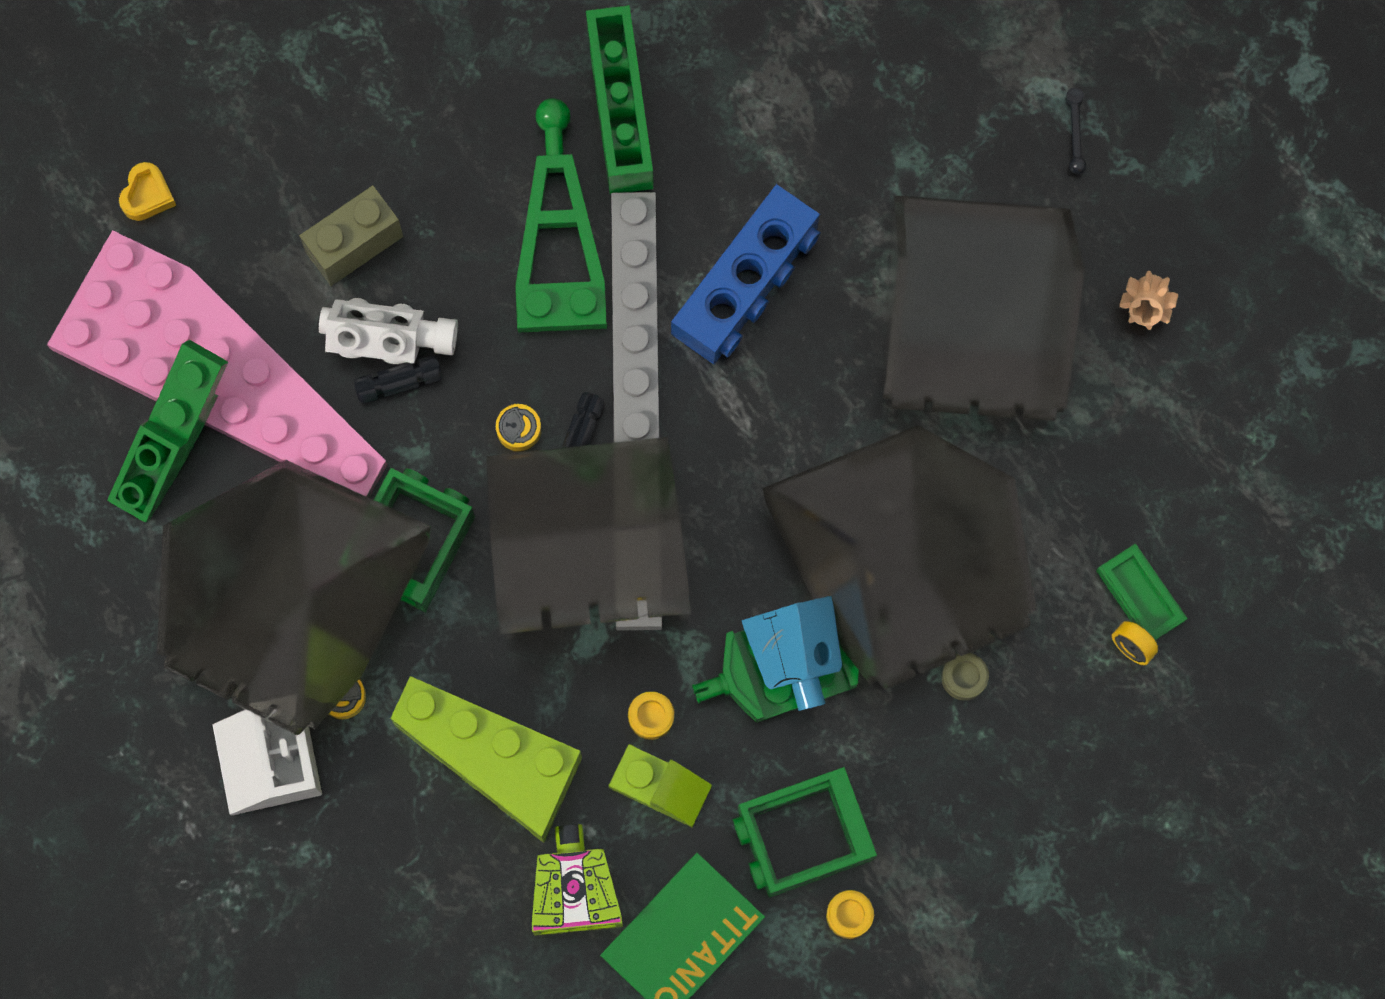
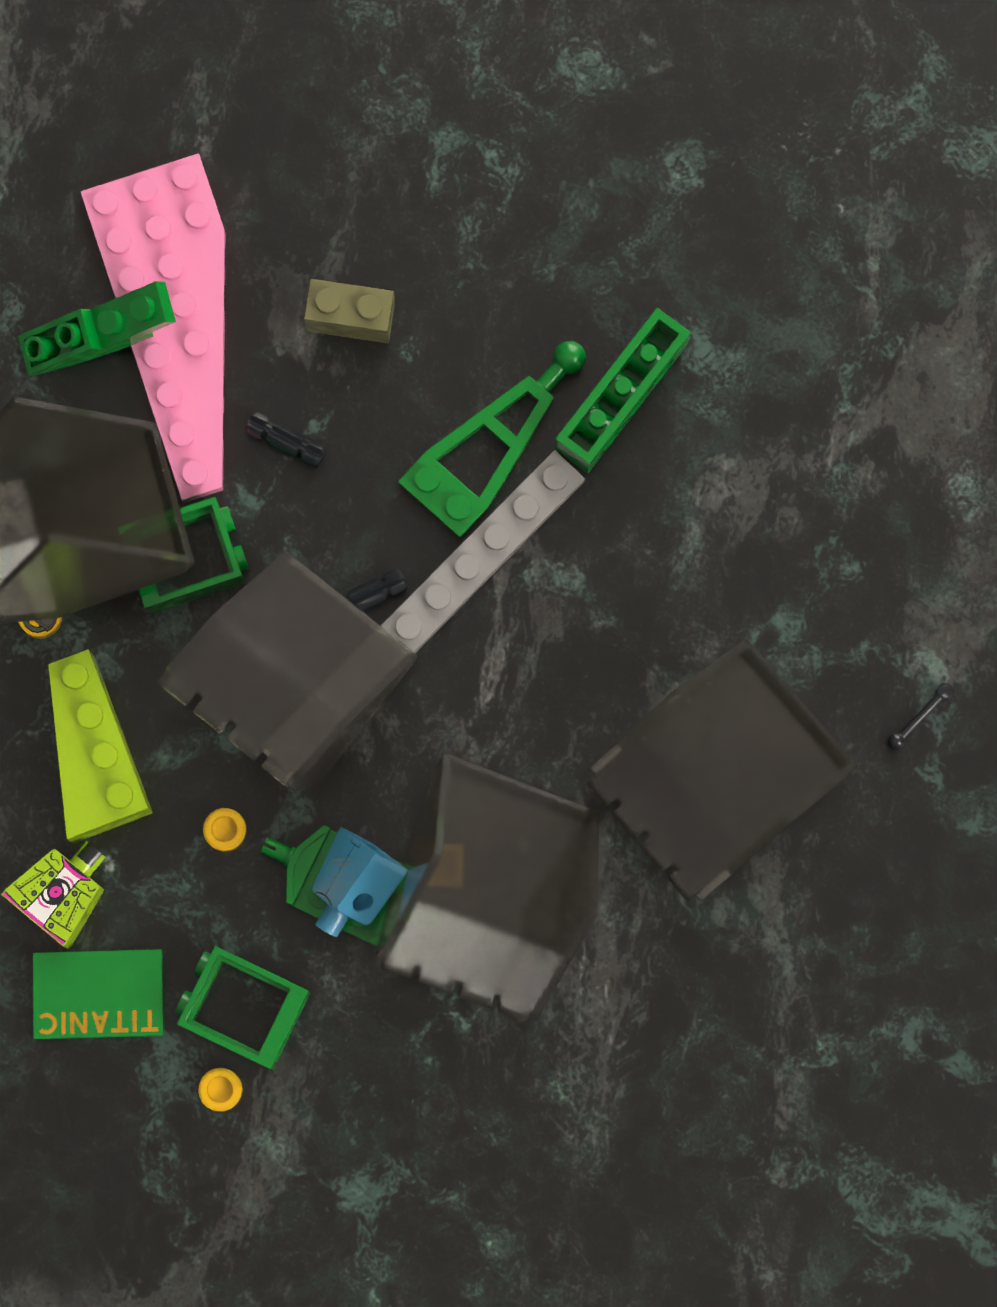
camera: 45 degrees right, 5 degrees up
(146, 193) = (247, 148): yellow tile -> none
(381, 335) = (303, 397): white brick -> none
(518, 427) = (332, 550): tile -> none
(660, 785) = (183, 882): lime slope -> none
(778, 216) = (647, 573): blue brick -> none
(965, 677) = (455, 1012): olive tile -> none
(1135, 642) = (590, 1103): yellow tile -> none
(1141, 592) = (631, 1075): green tile -> none
(1149, 300) = (842, 883): light nougat gear -> none

